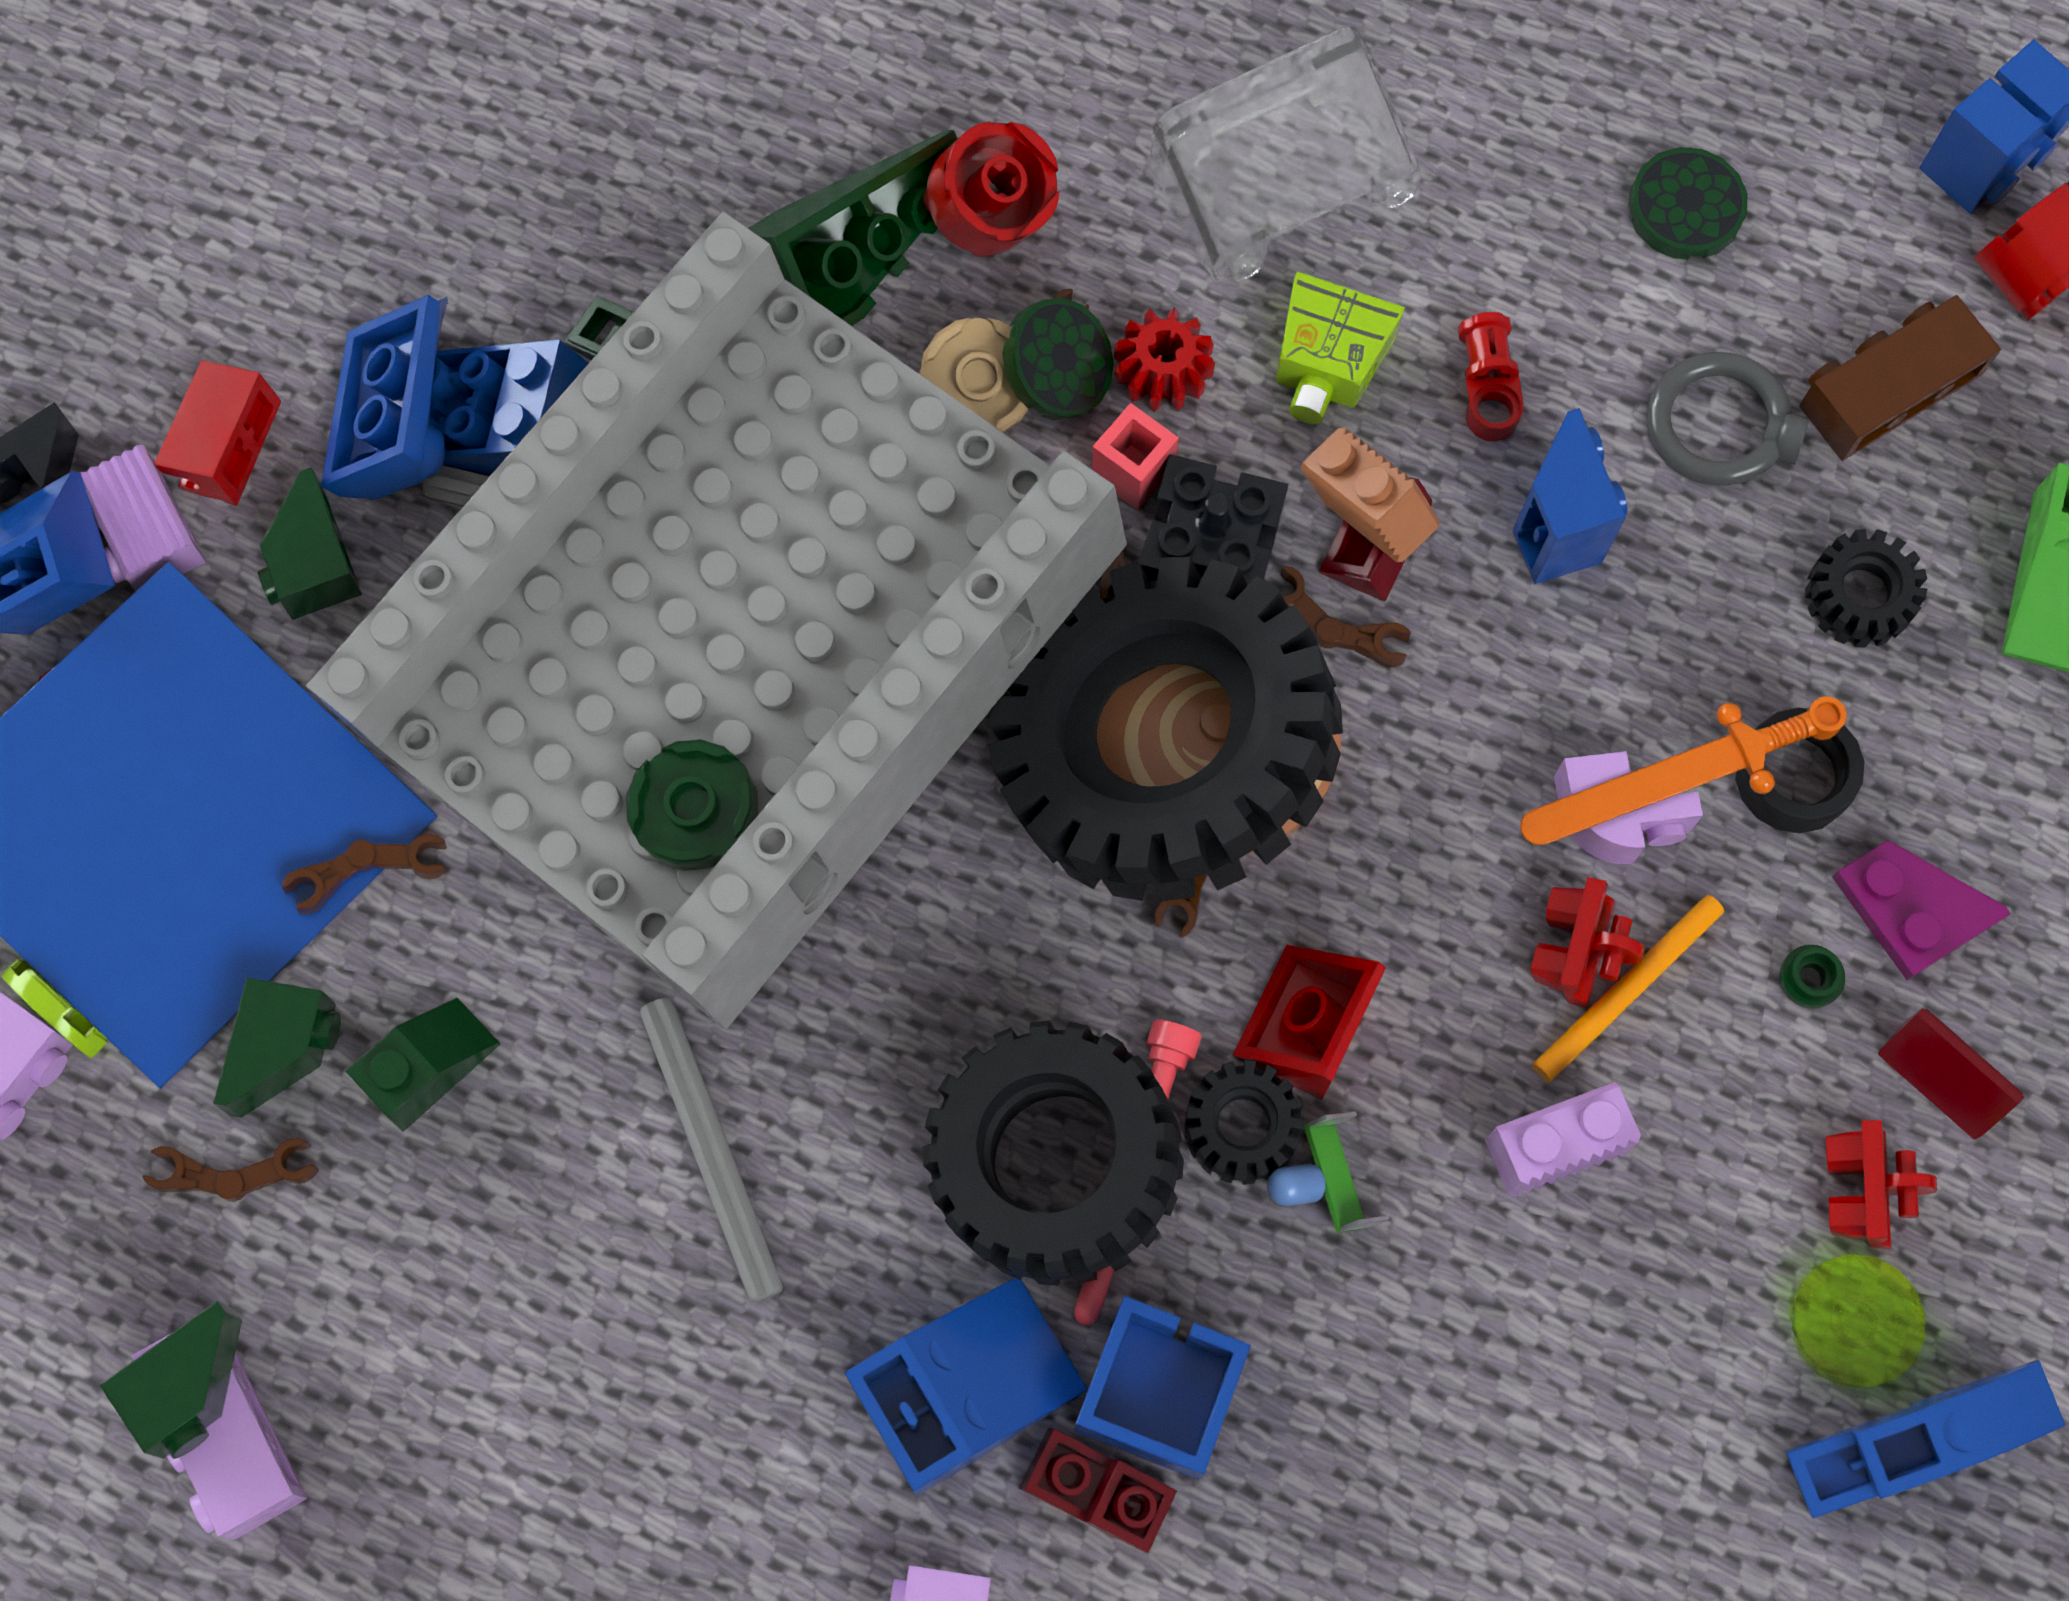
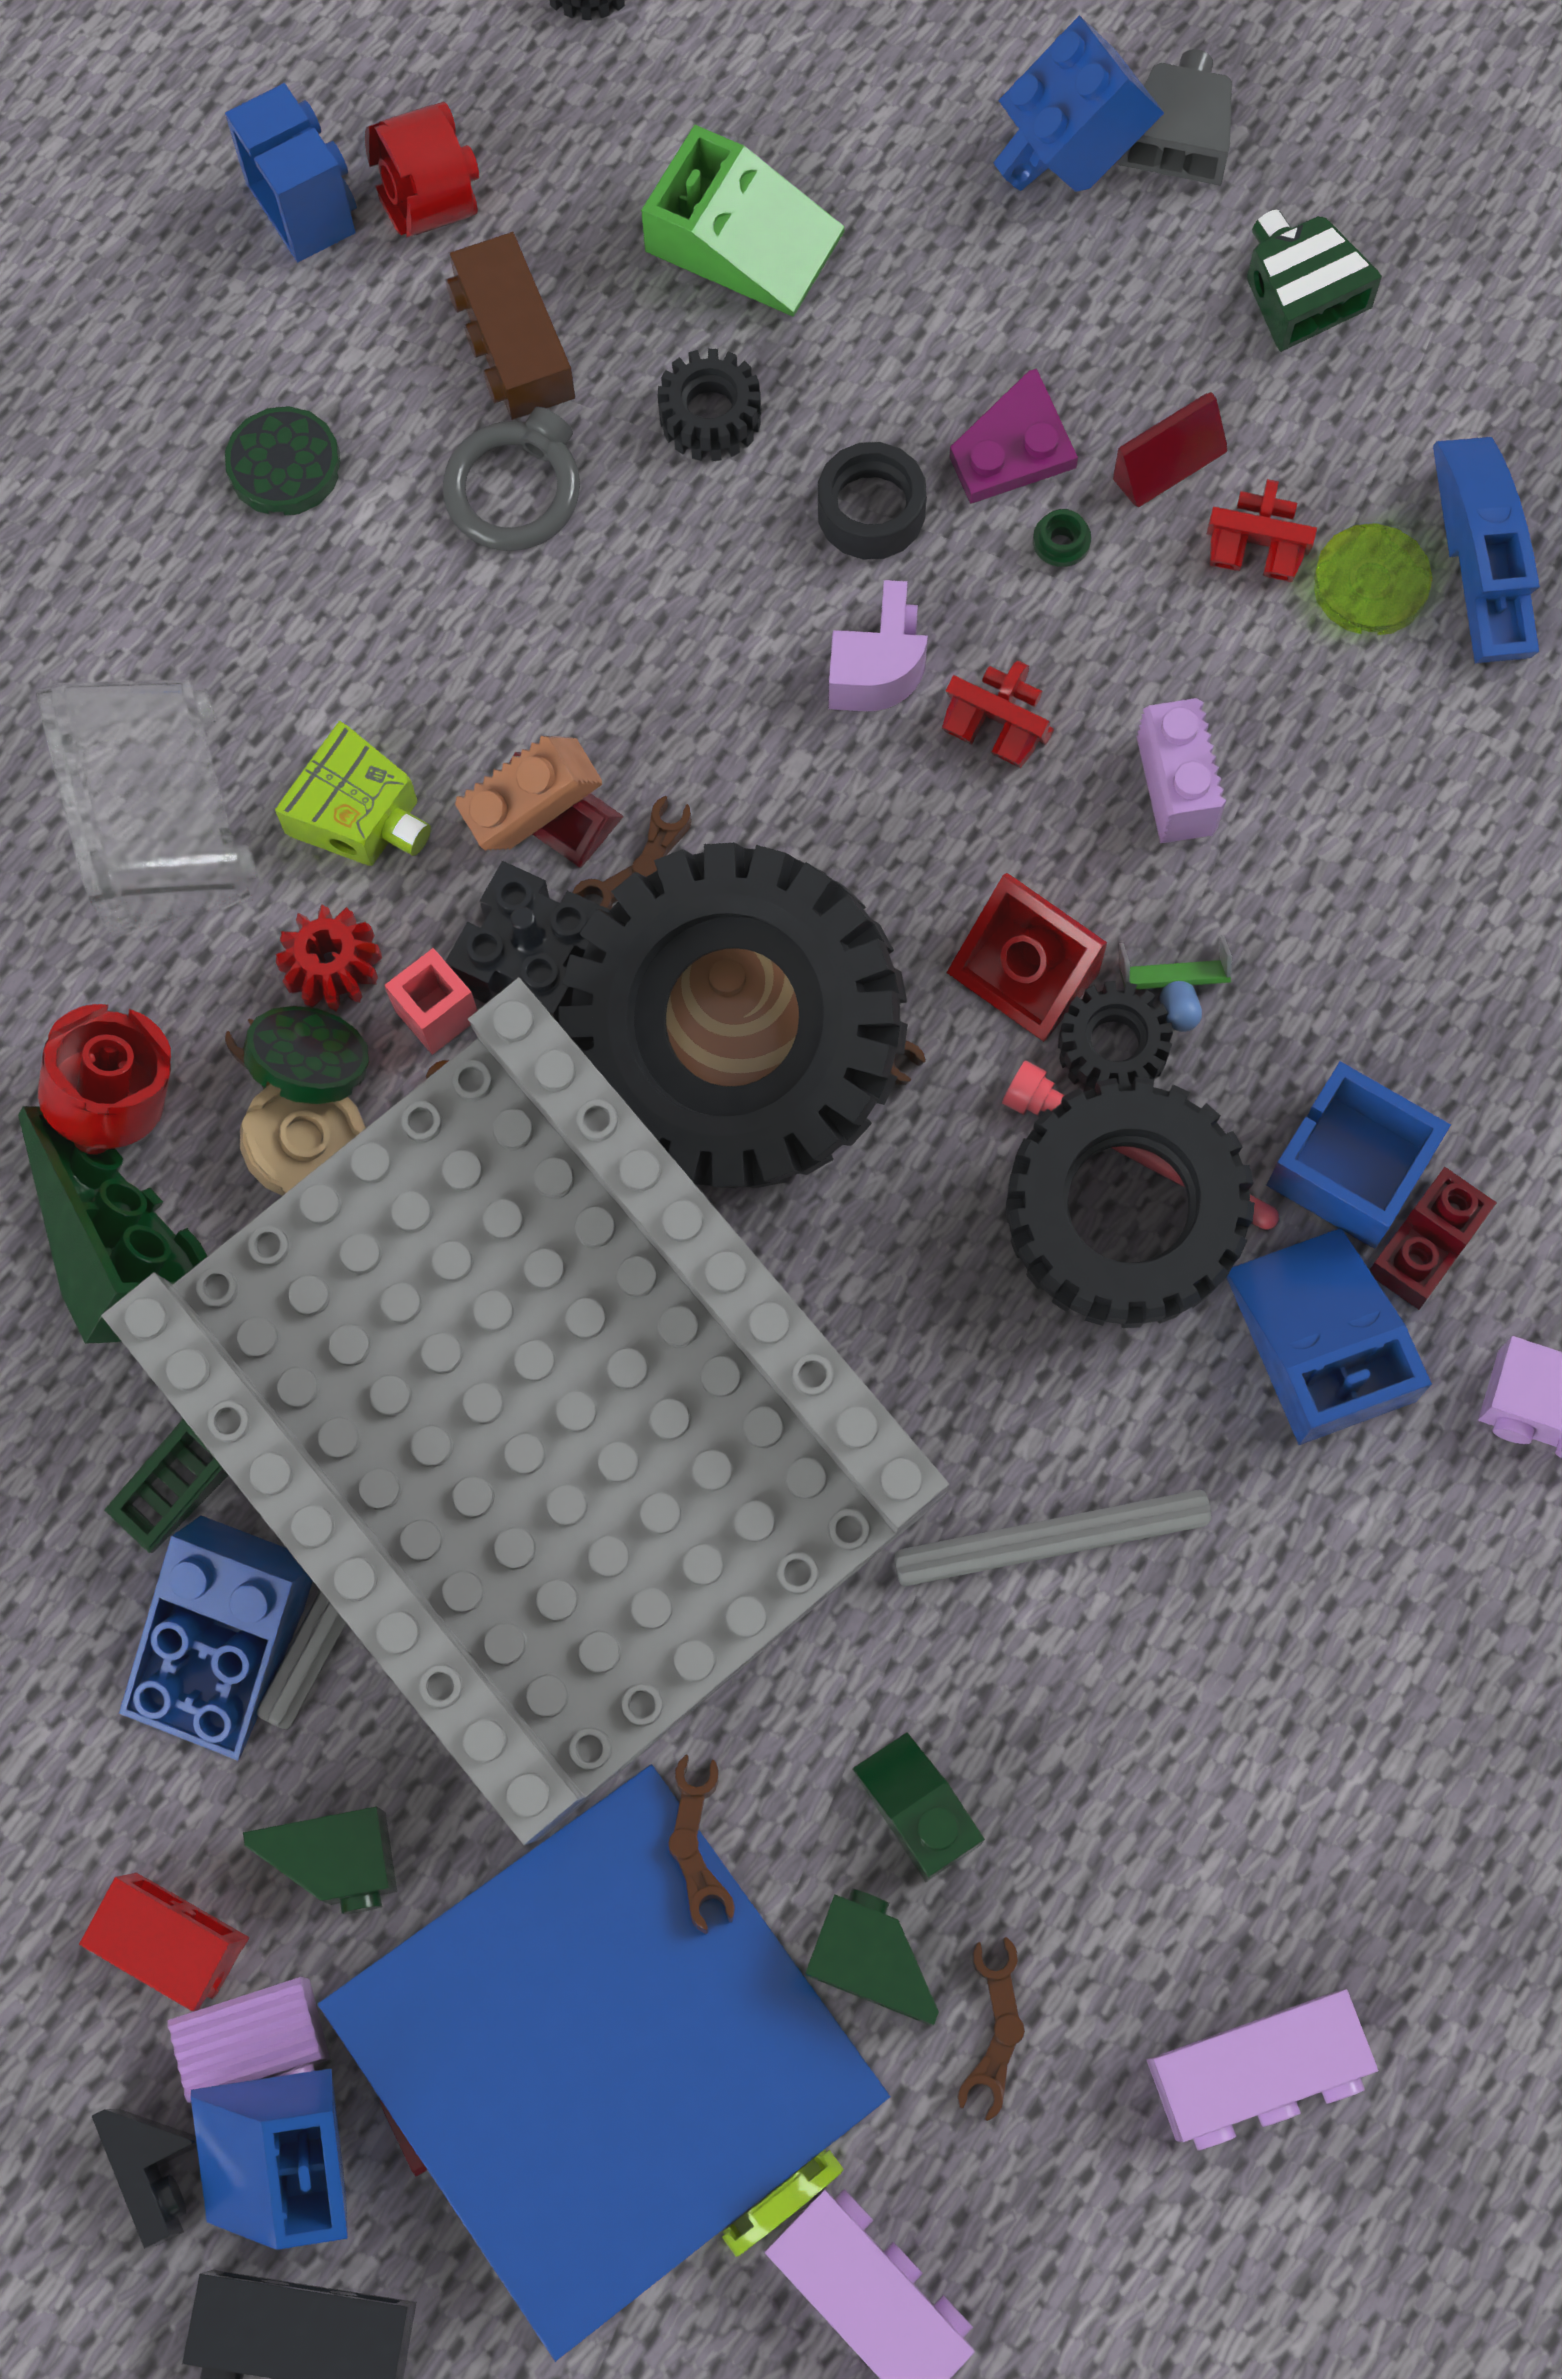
camera: 75 degrees left, 0 degrees up
(178, 1384) = (1232, 2086): dark green slope -> none
(383, 405) = (181, 1741): blue slope -> none
(691, 804) = (734, 1466): dark green tile -> none
(1490, 373) = (419, 668): red connector -> none
(1571, 505) = (573, 623): blue slope -> none
(1628, 988) = (1051, 700): light orange bar -> none
(1737, 751) = (867, 605): orange sword -> none

